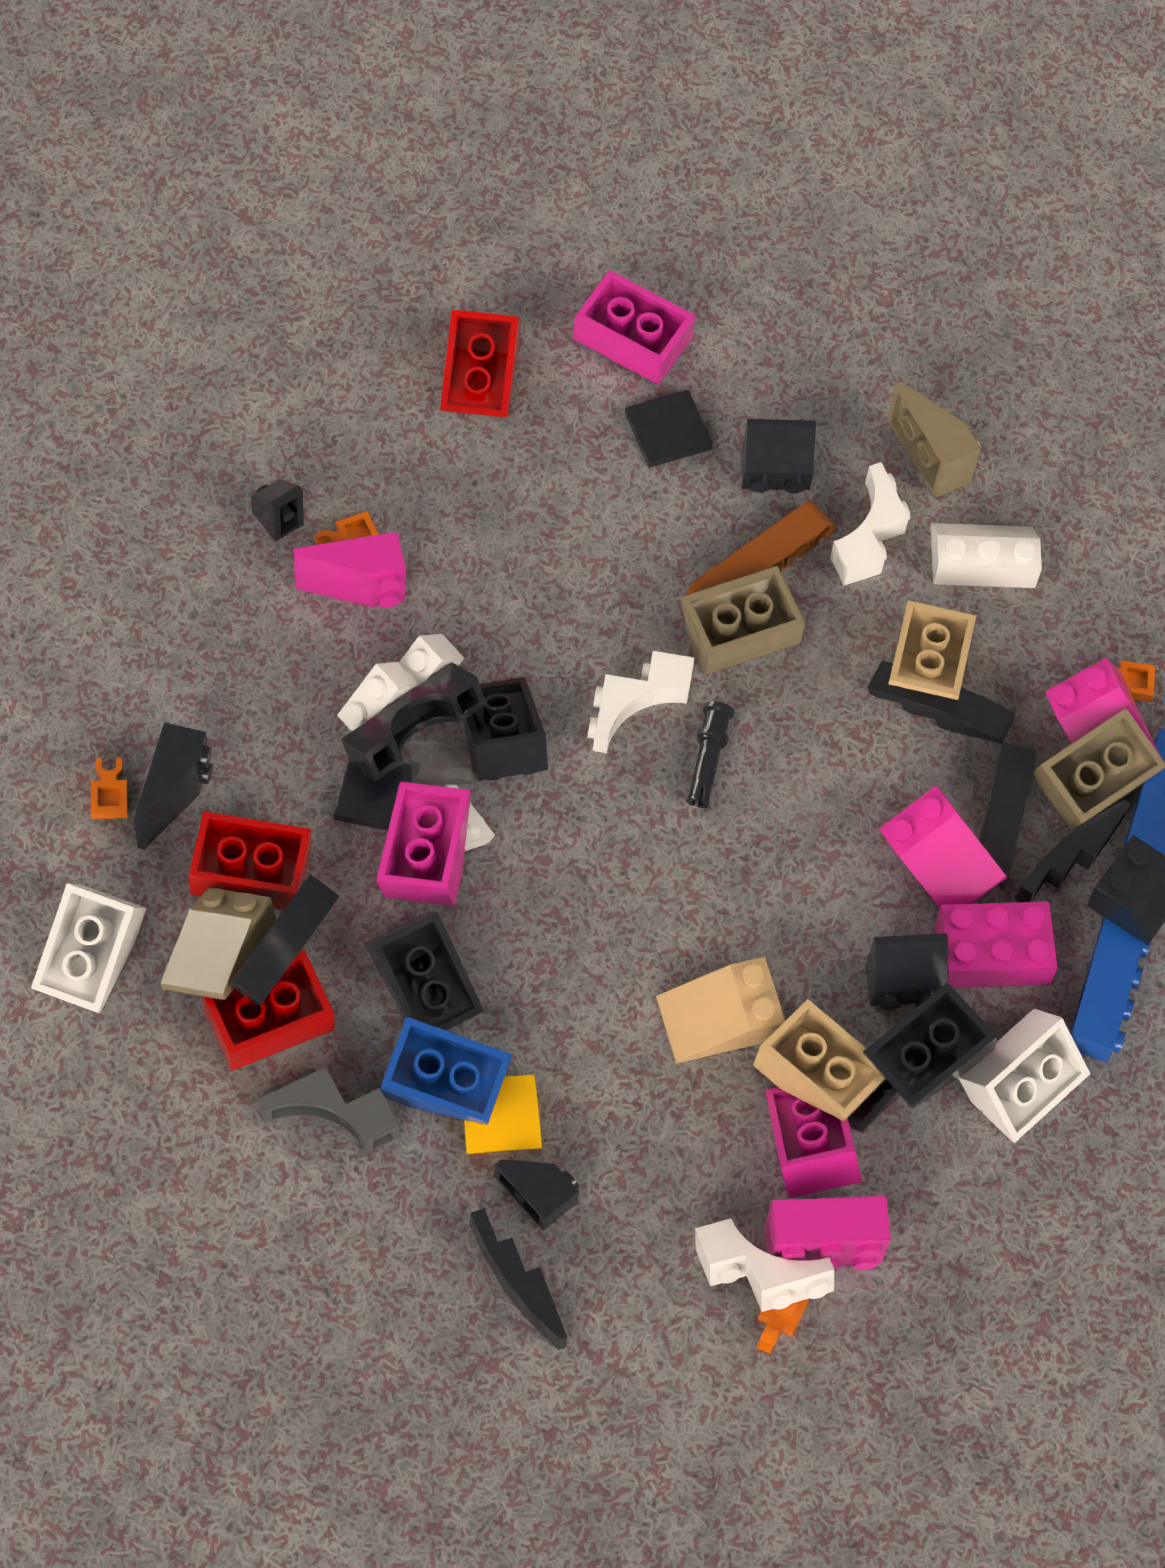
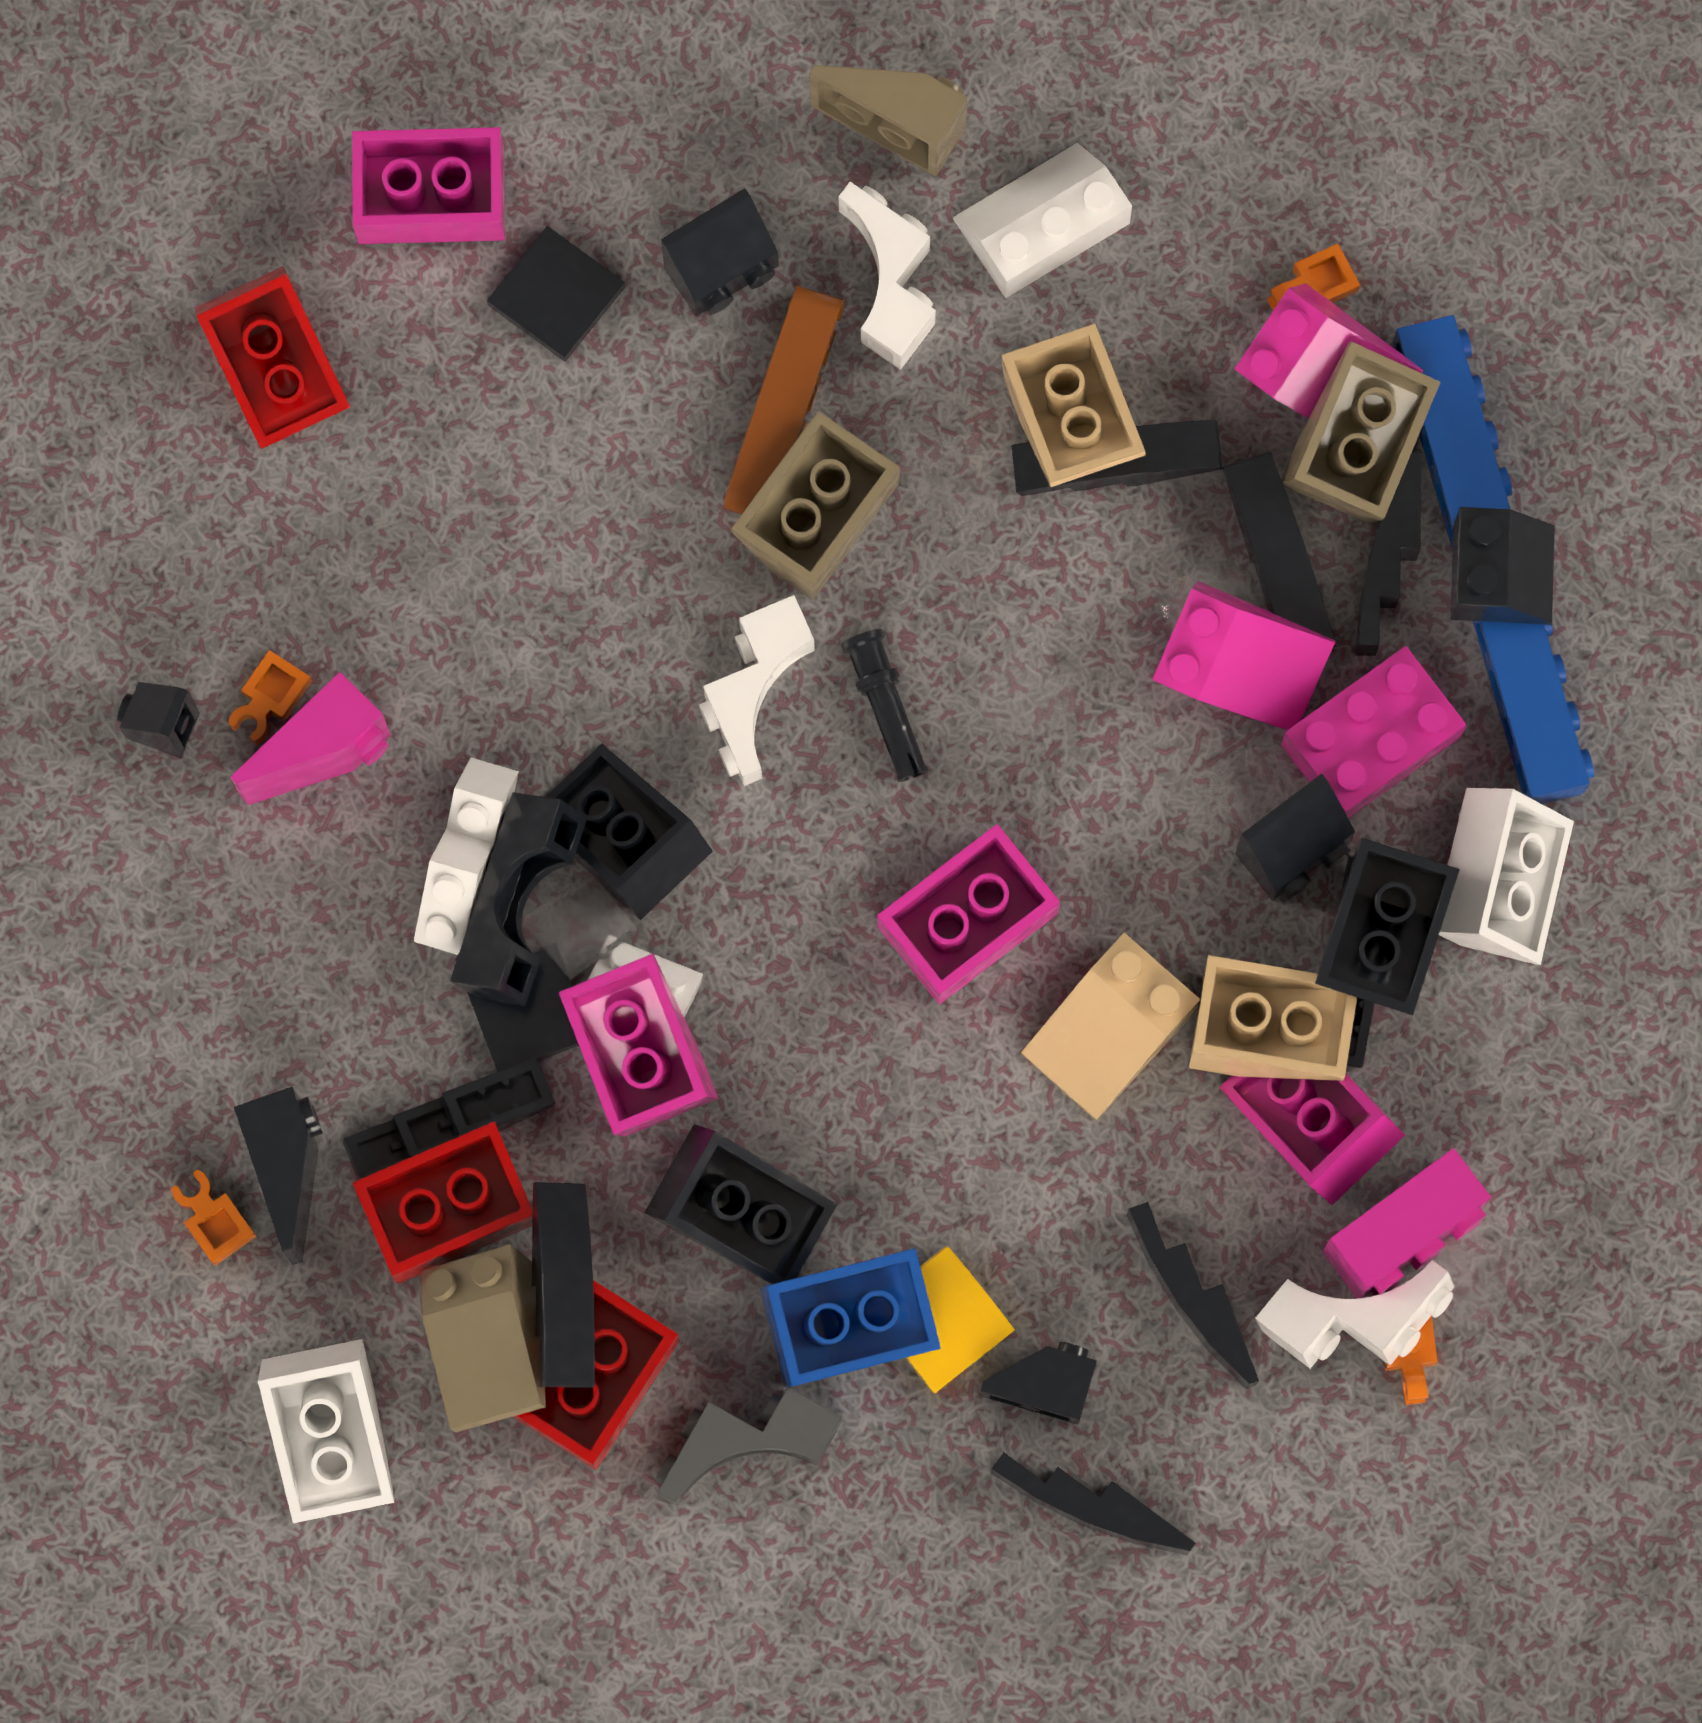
camera: 25 degrees left, 15 degrees up
(329, 828) = (499, 1097): none -> black slope
(665, 1204) = (1205, 1311): none -> black slope
(677, 893) = (968, 914): none -> dark pink brick

